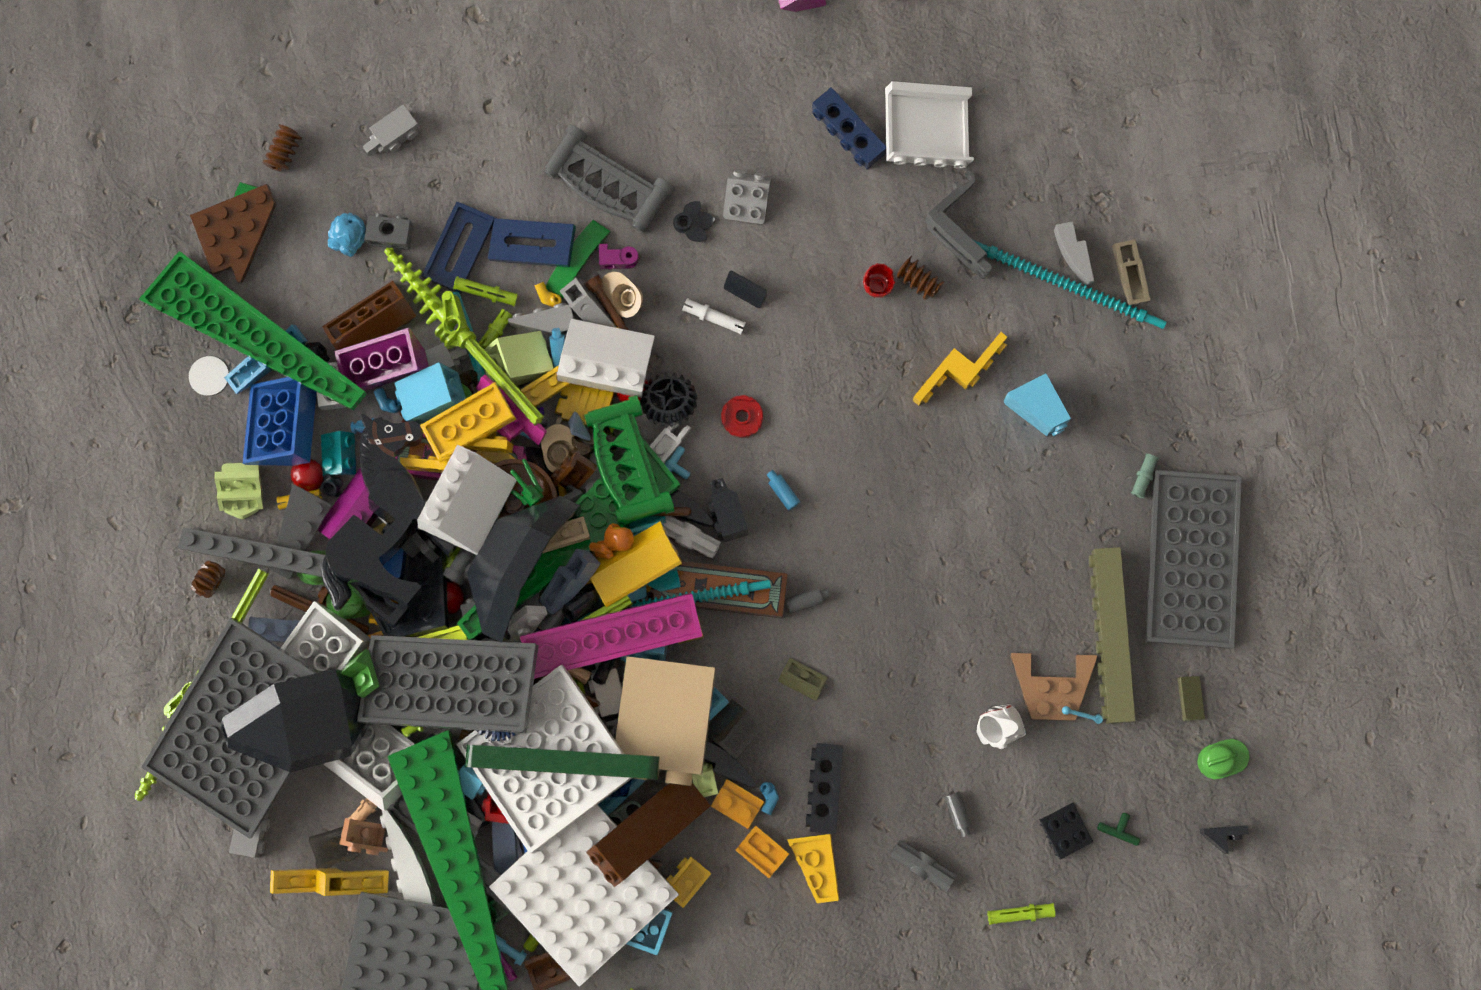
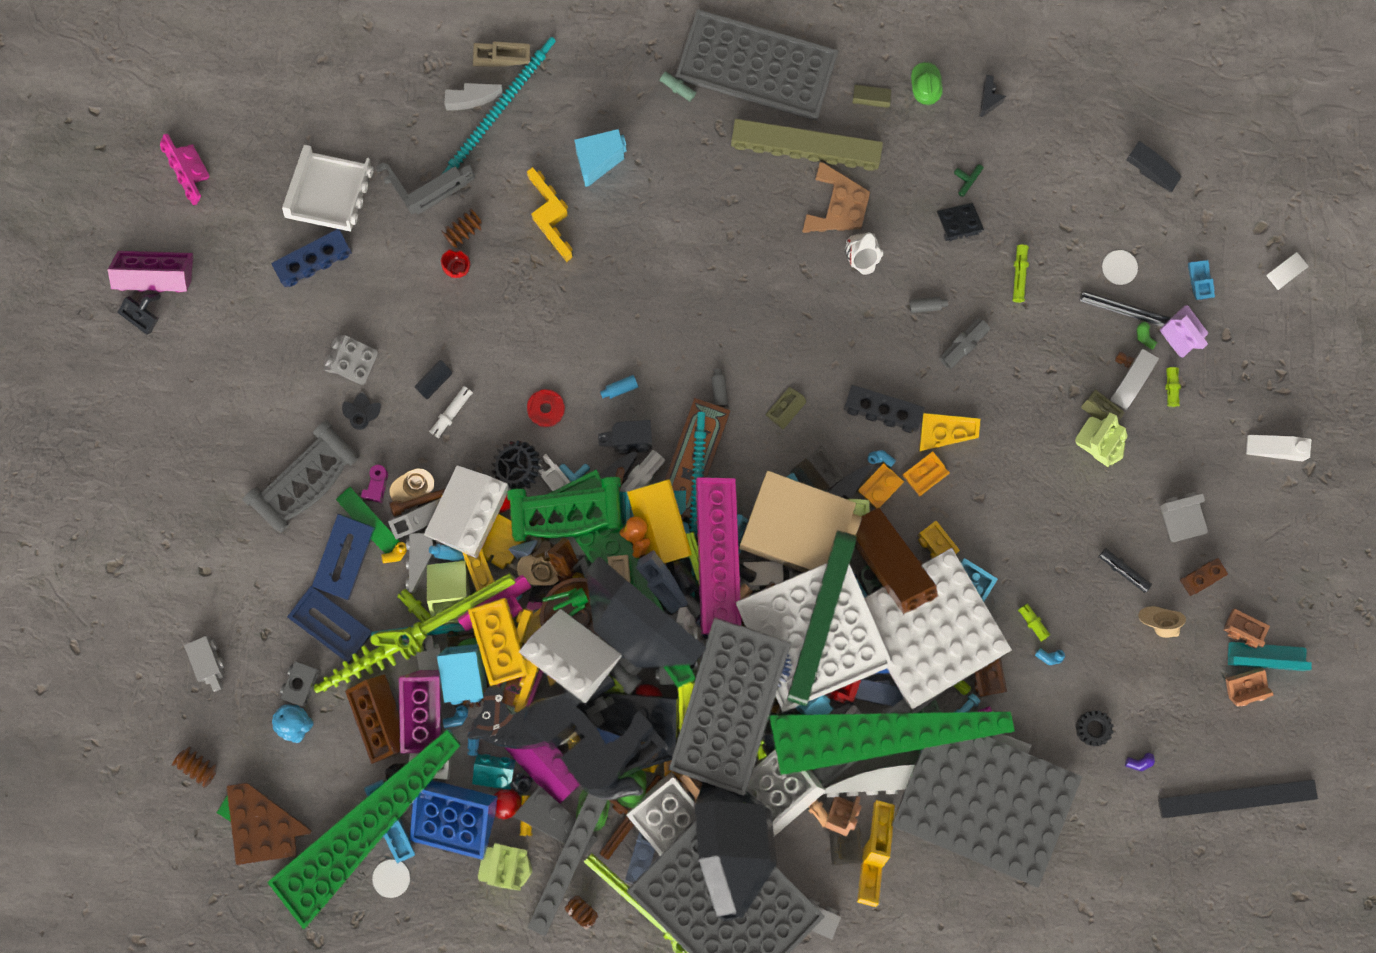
camera: 85 degrees left, 0 degrees up
(363, 673) = (702, 781): bright green slope -> none
(510, 298) = (366, 627): lime pin -> none
(1097, 718) = (872, 174): medium azure hinge -> none

